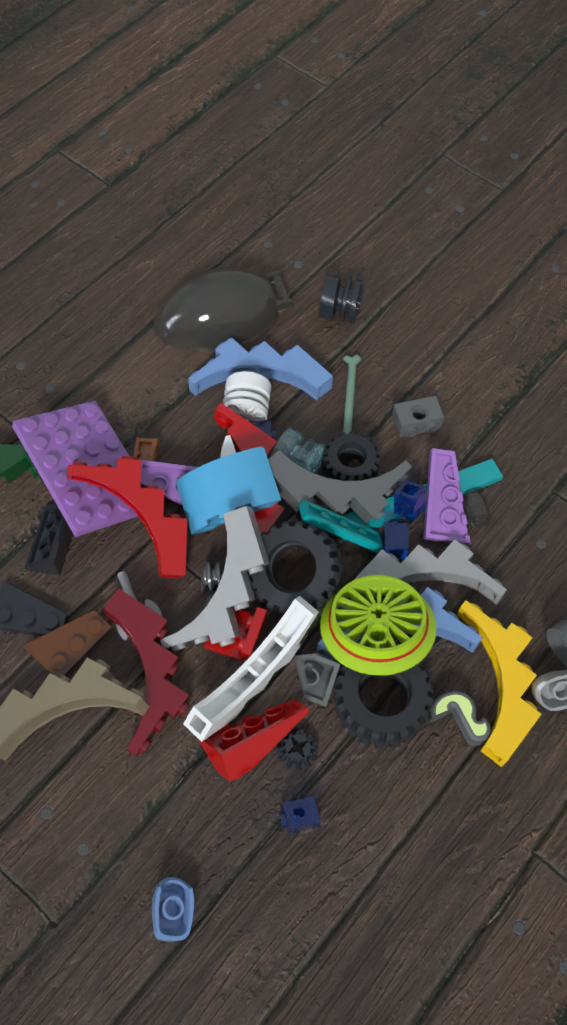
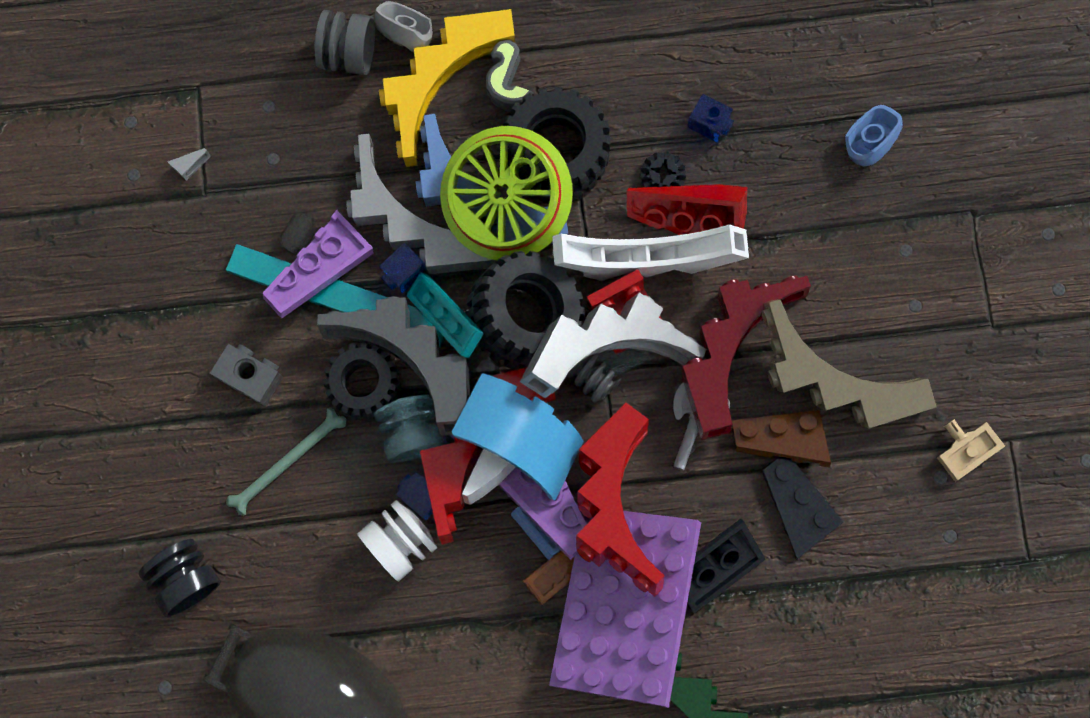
camera: 130 degrees left, 15 degrees up
(292, 367) = (306, 543): medium blue arch -> none
(317, 676) = (593, 211): dark grey slope -> none
(410, 500) = (354, 286): clear blue brick -> none

